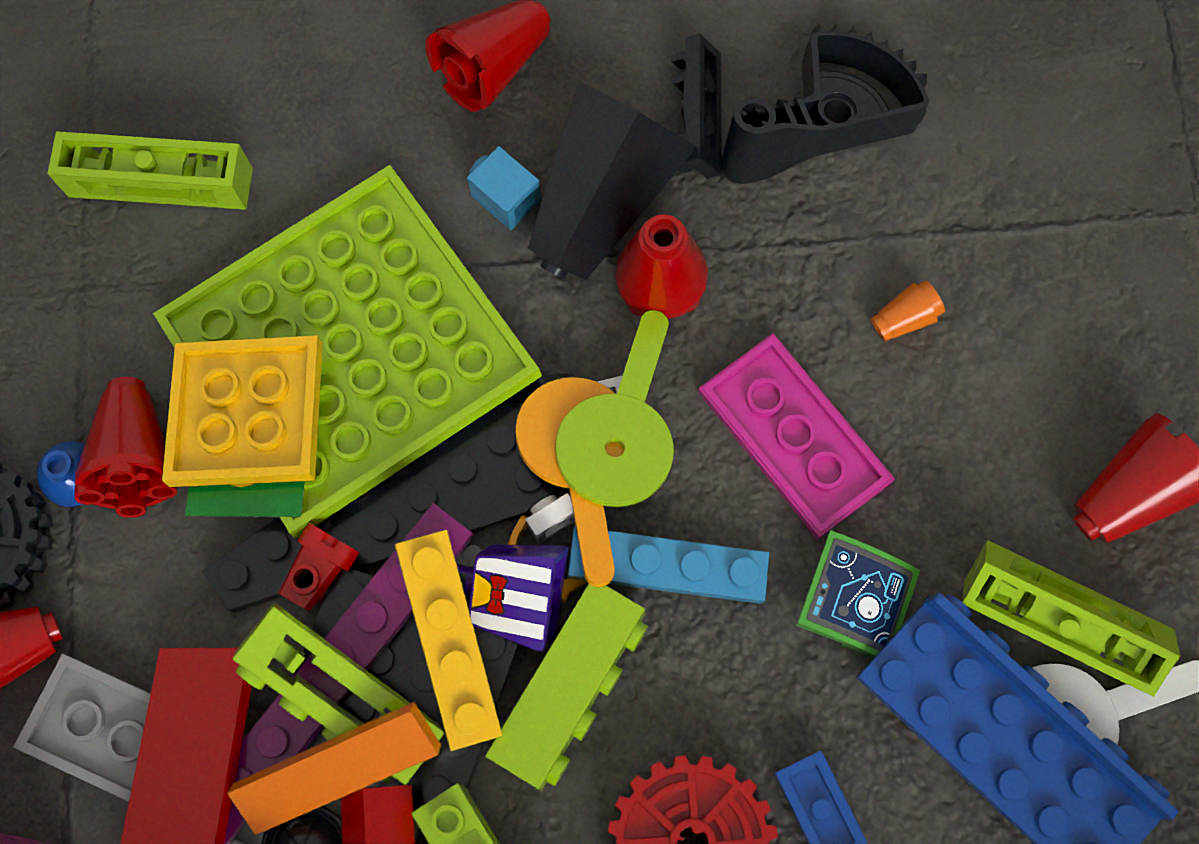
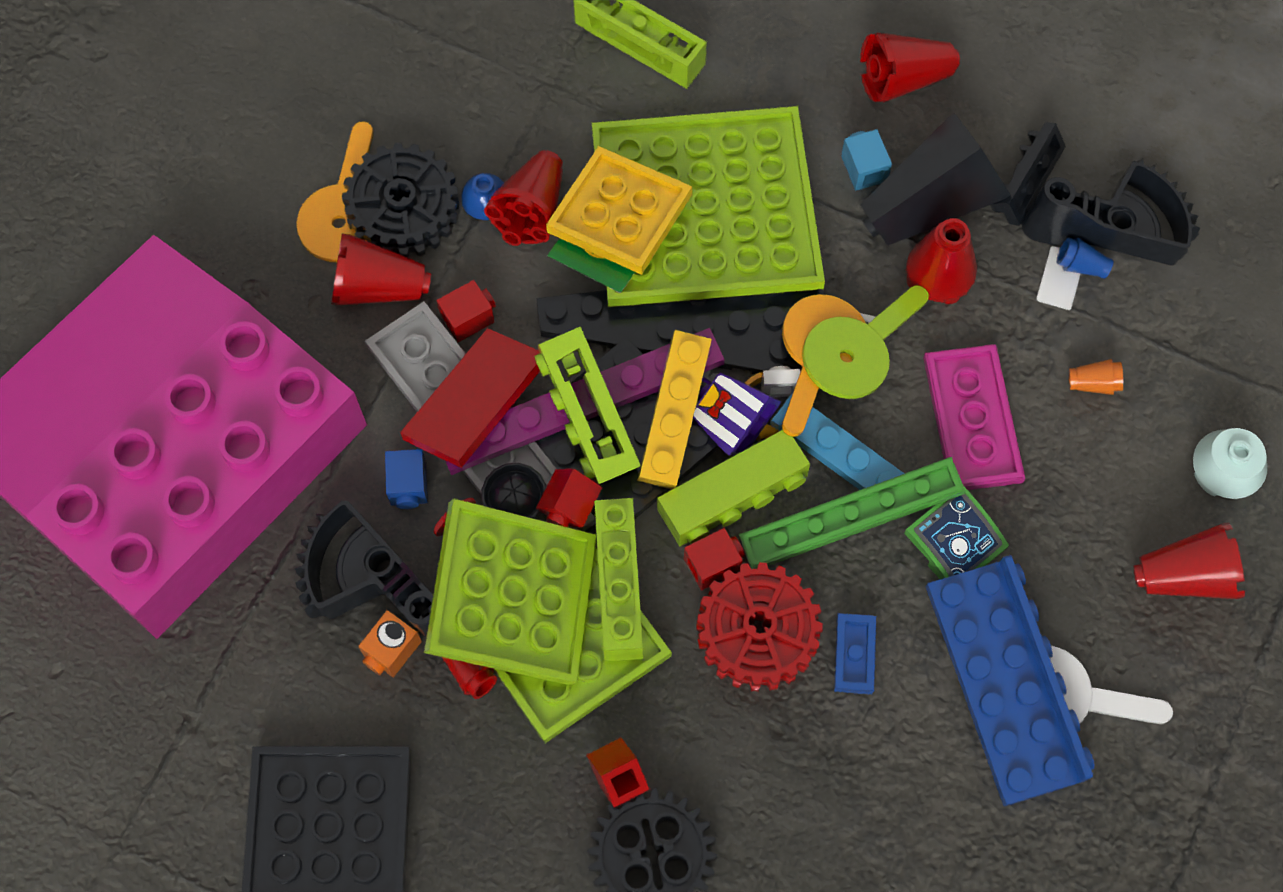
camera: 25 degrees right, 5 degrees down
(122, 635) = (466, 310): none -> red brick
(324, 558) = (619, 325): red plate -> none
(334, 768) = (562, 447): orange tile -> none
(592, 785) = (712, 557): none -> red brick
(723, 639) = (852, 513): none -> bright green tile
(799, 212) = (1057, 285): none -> white sticker
(812, 178) = (1082, 258): none -> blue cone
(1071, 618) = (1091, 621): lime brick -> none
(1110, 334) = (1230, 463): none -> light aqua cone

